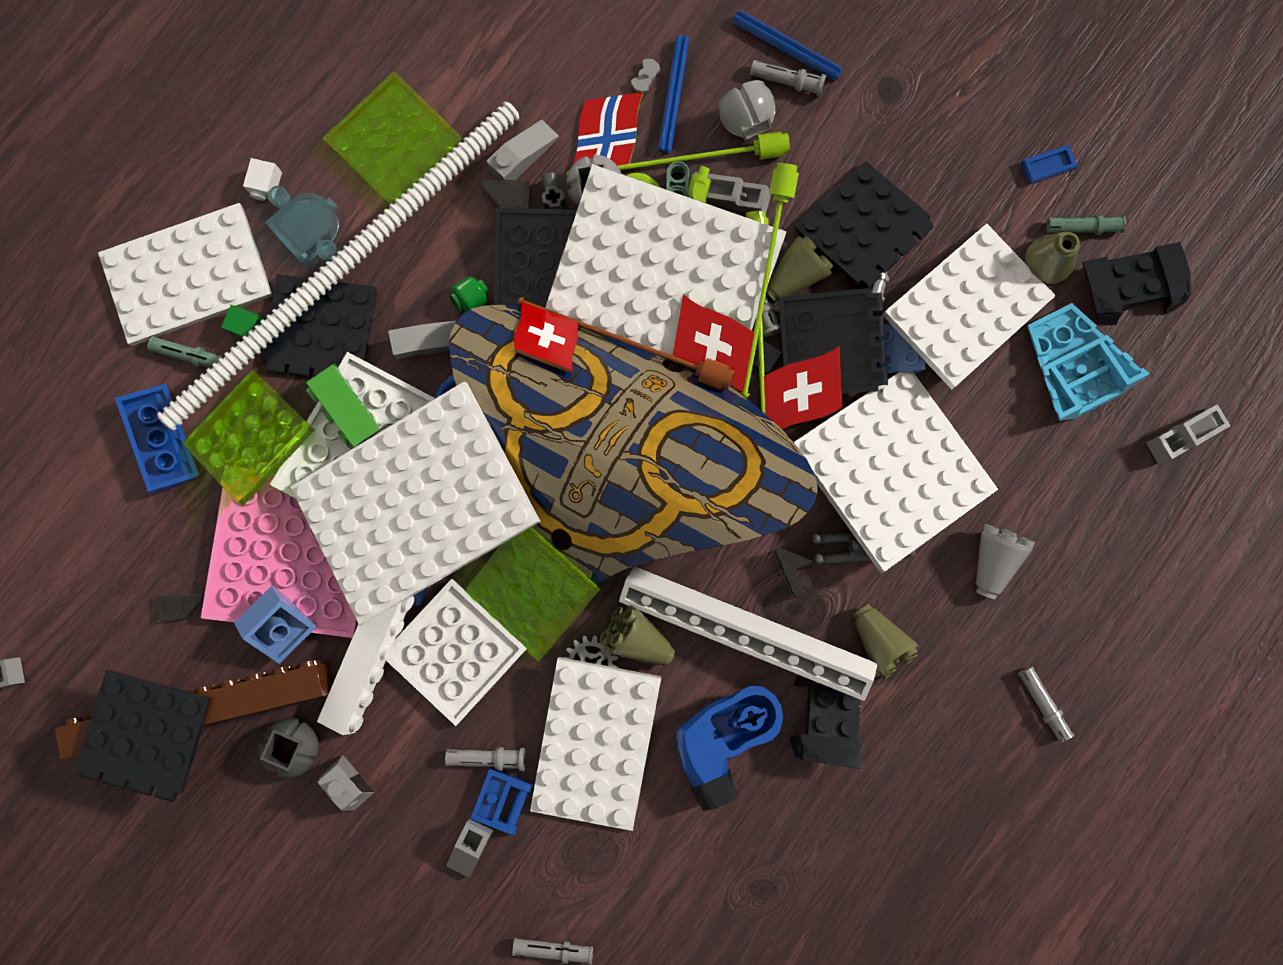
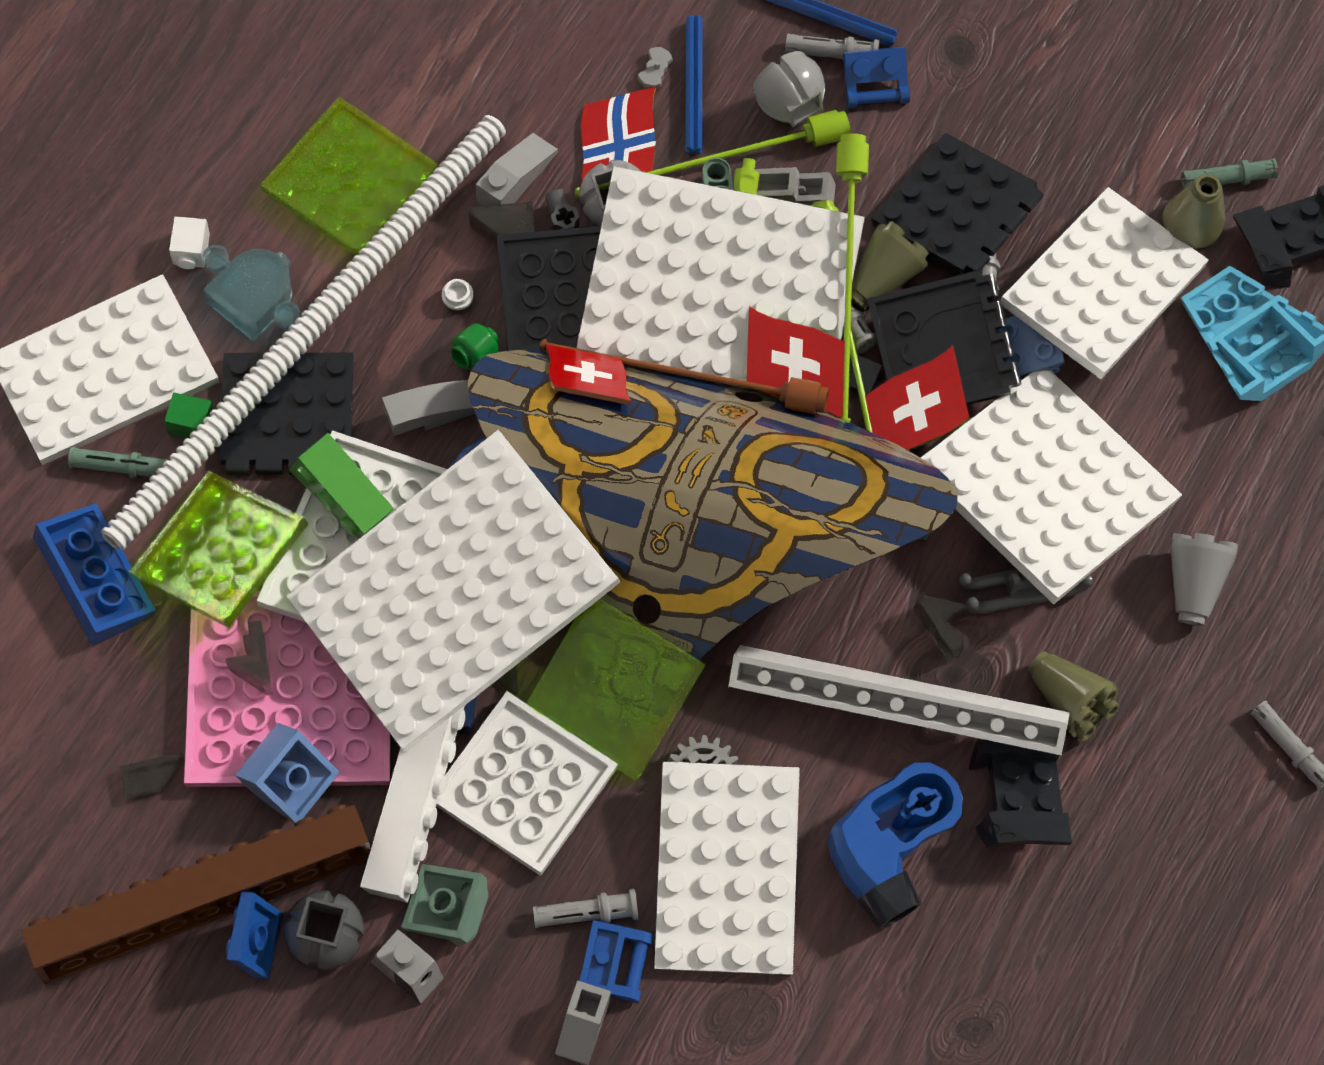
camera: 15 degrees left, 15 degrees down
(143, 735) = (141, 920): black hinge -> none
(233, 748) = (254, 935): none -> blue plate
(265, 537) = (255, 666): none -> clear smoke slope
(382, 741) = (447, 904): none -> sand green slope
(462, 248) = (457, 294): none -> white plate
(636, 638) = (759, 728): olive cone -> none
(818, 98) = (873, 67): none -> blue plate
(1049, 164) = (1171, 112): blue tile -> none

